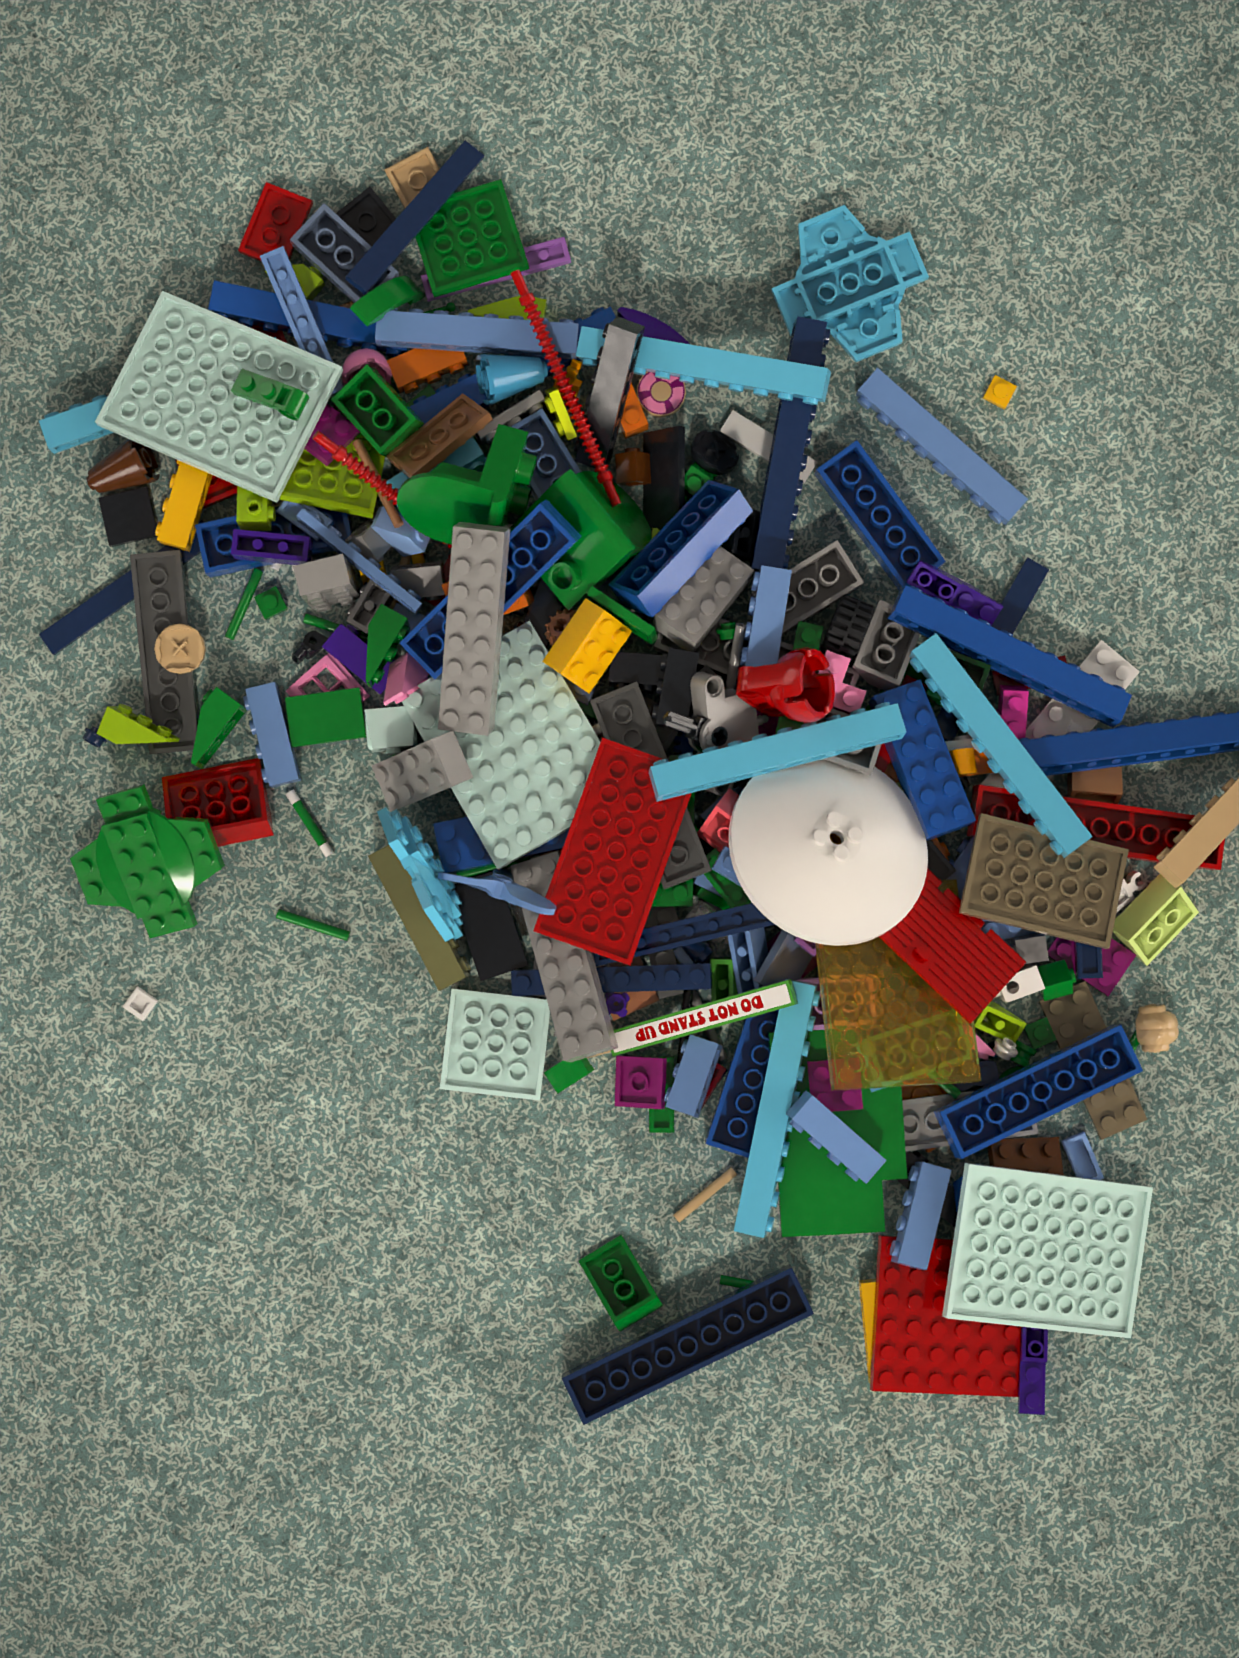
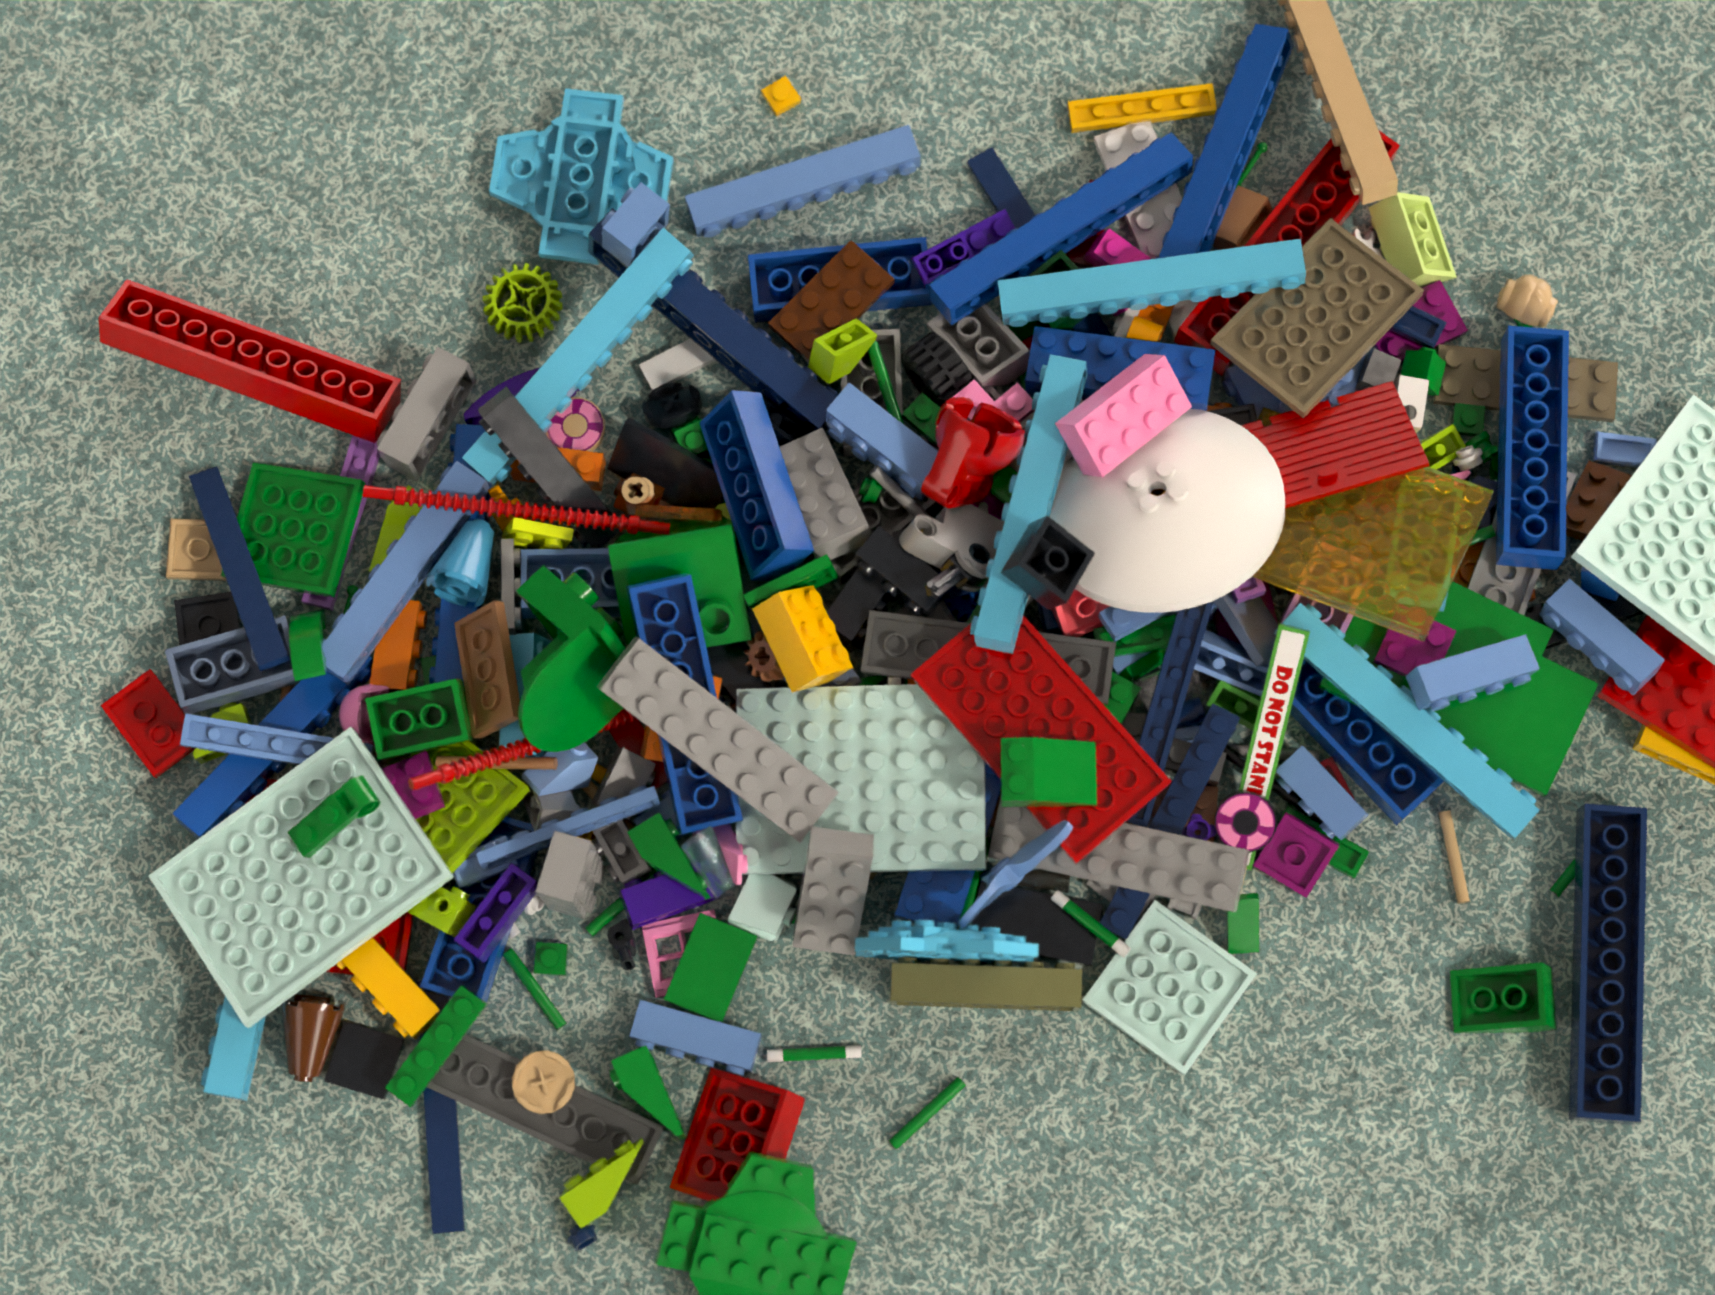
camera: 60 degrees left, 10 degrees down
(161, 560) = (436, 1046): none -> green plate
(391, 672) = (709, 861): none -> clear light blue slope
(508, 964) = (1090, 923): none -> green bar
(571, 130) = (250, 360): none -> red brick
(584, 875) = (1047, 772): none -> green slope
(605, 280) = (426, 413): none -> light grey brick
(633, 503) = (677, 512): none -> clear orange tile
(634, 472) = (629, 492): none -> tan bush
(641, 1033) = (1245, 820): none -> tile
(731, 789) = (1048, 562): none -> black brick
(739, 303) = (513, 309): none -> lime gear
(814, 596) = (884, 381): none -> green piece
(819, 345) = (634, 223): none -> medium blue brick
(820, 549) = (840, 350): none -> lime slope
(854, 521) = (831, 298): none -> reddish brown plate
(879, 782) = (1123, 415): none -> bright pink brick
(1144, 662) = (1142, 107): none -> yellow plate
(1165, 768) = (1261, 148): none -> green hinge

